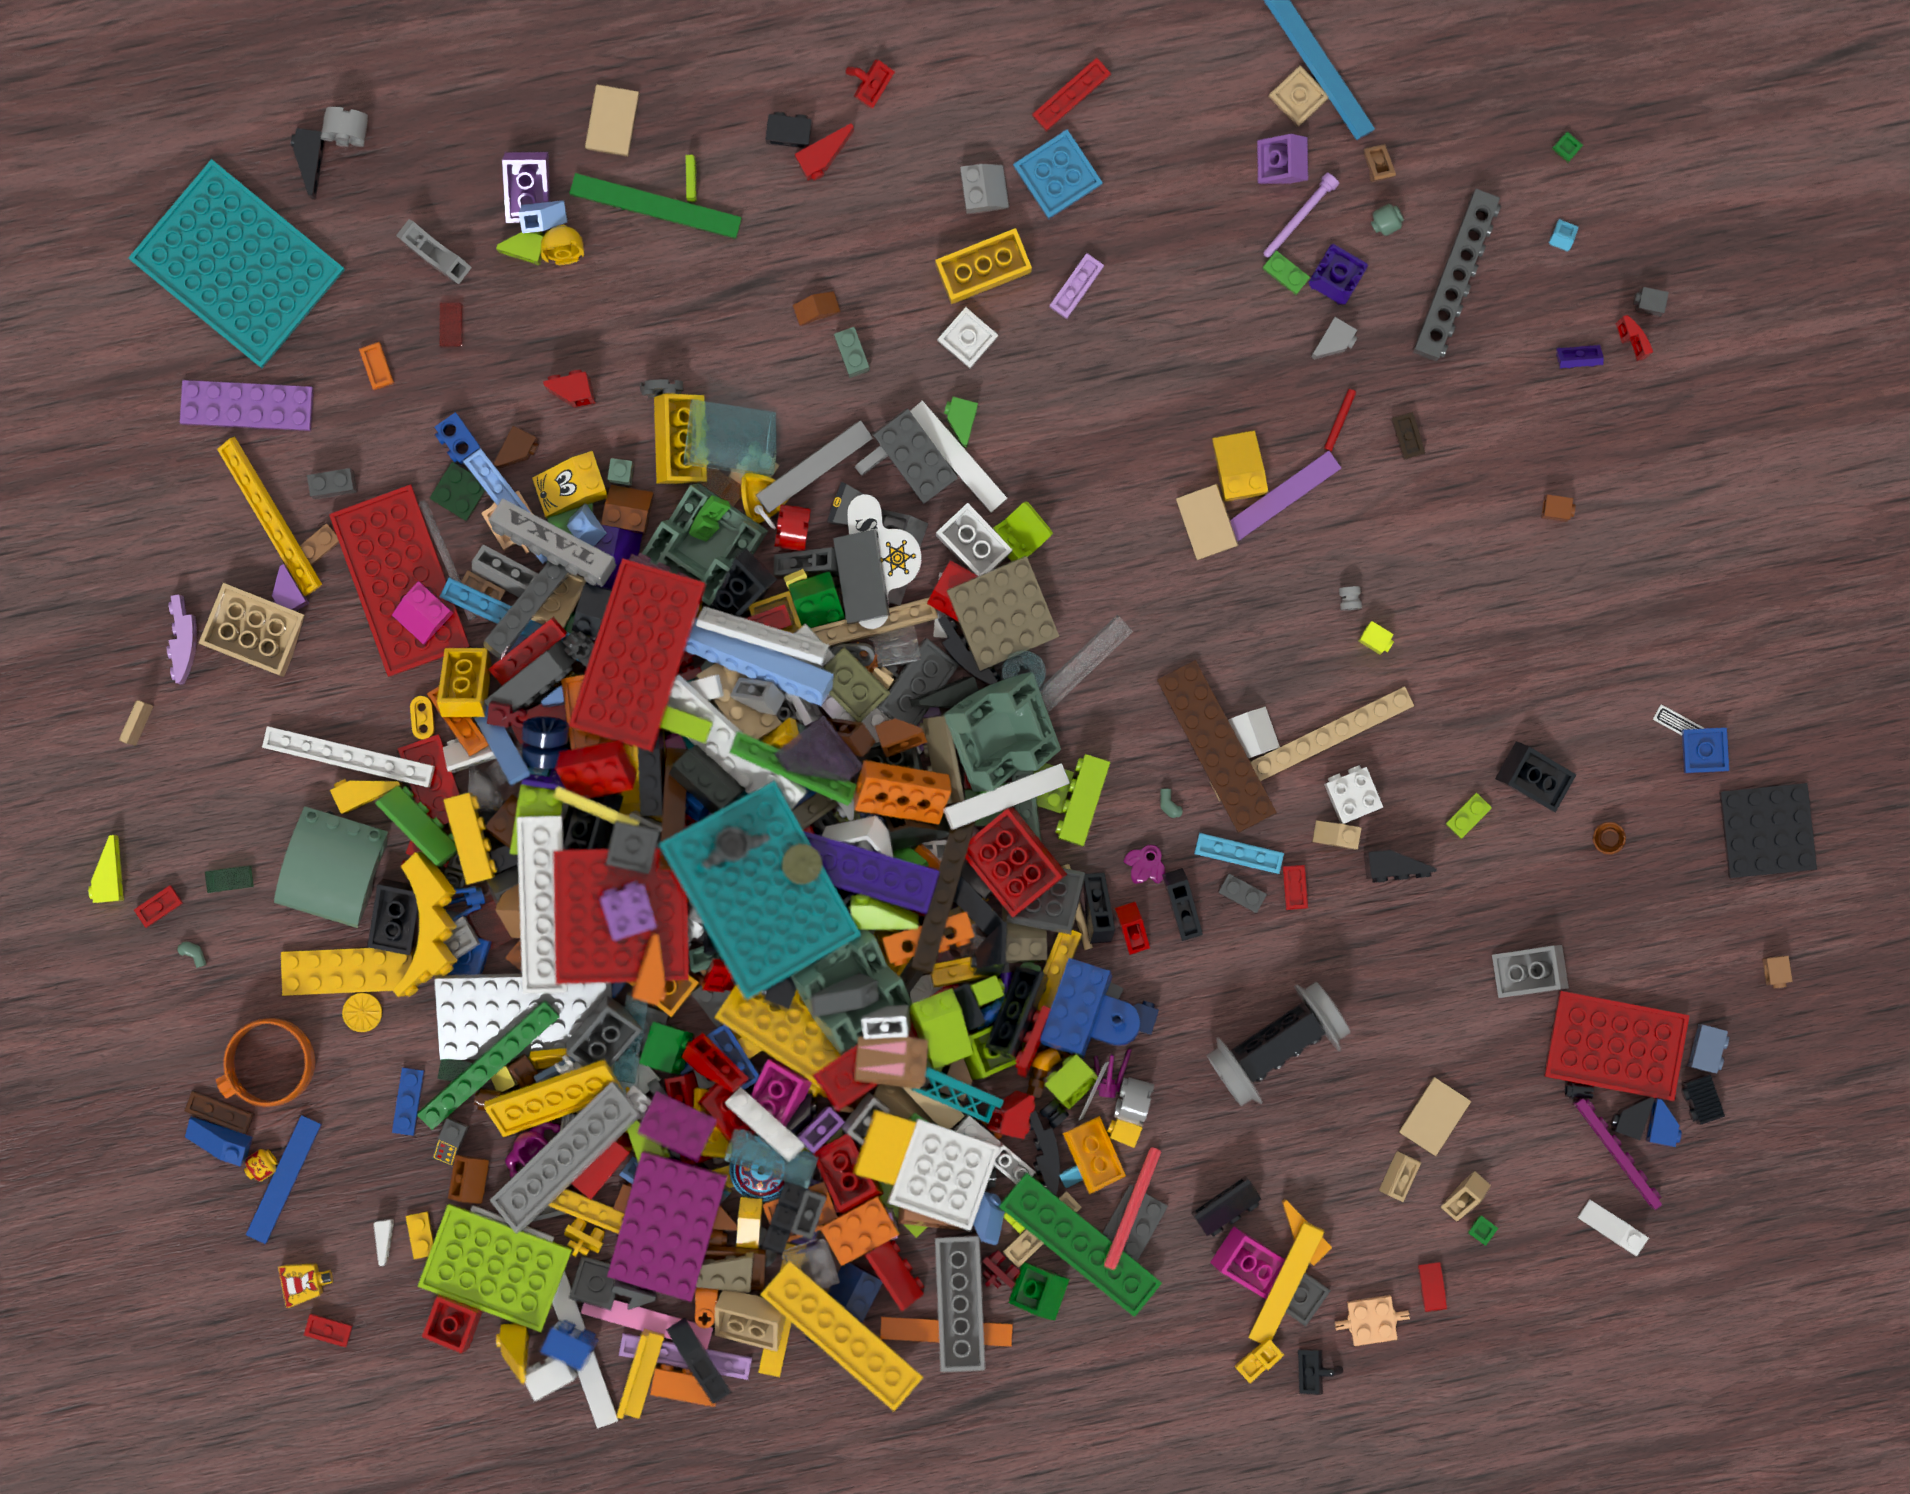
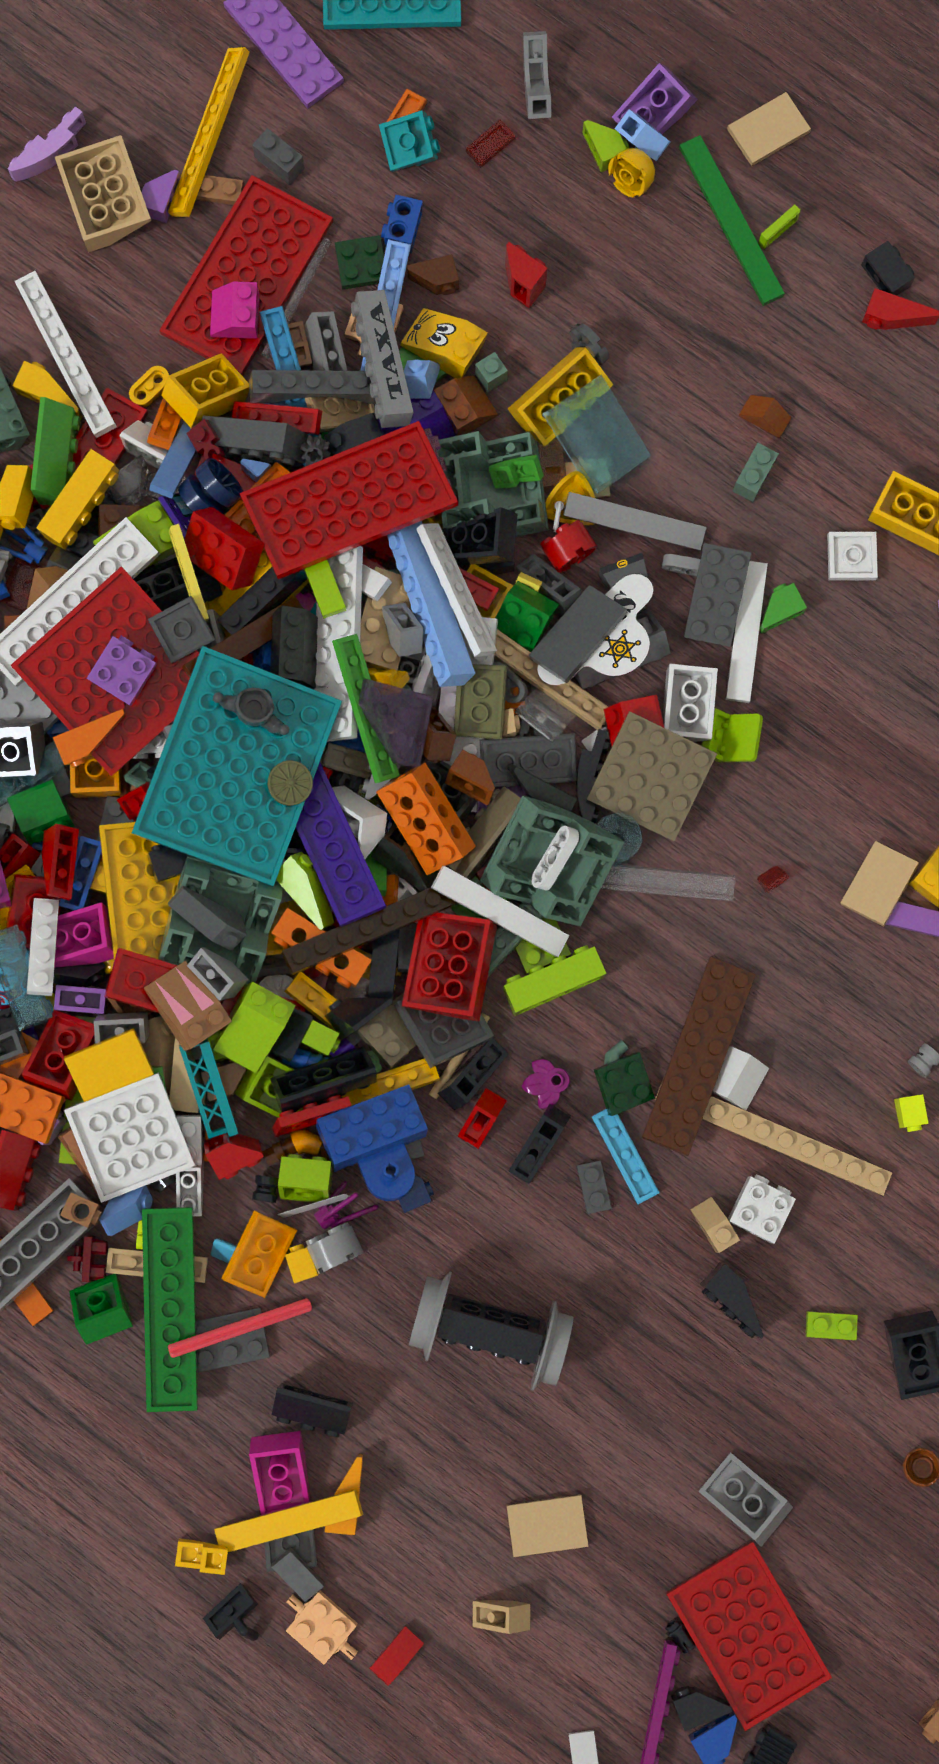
camera: 50 degrees right, 5 degrees down
(402, 382) = (409, 141): none -> teal plate
(957, 1253) = (71, 1206): none -> medium nougat brick
(1000, 715) = (562, 848): none -> white beam
(1048, 1162) = (220, 1220): black slope -> none
(1140, 590) = (772, 878): none -> clear red slope
(1192, 813) = (624, 1083): none -> dark green plate
(1295, 887) = (638, 1228): red plate -> none
(1325, 1307) = (297, 1574): none -> flat silver tile
(1400, 1176) = (468, 1540): tan slope -> none
(1482, 1230) = (484, 1657): green plate -> none
(1708, 1049) = (817, 1721): sand blue brick -> none

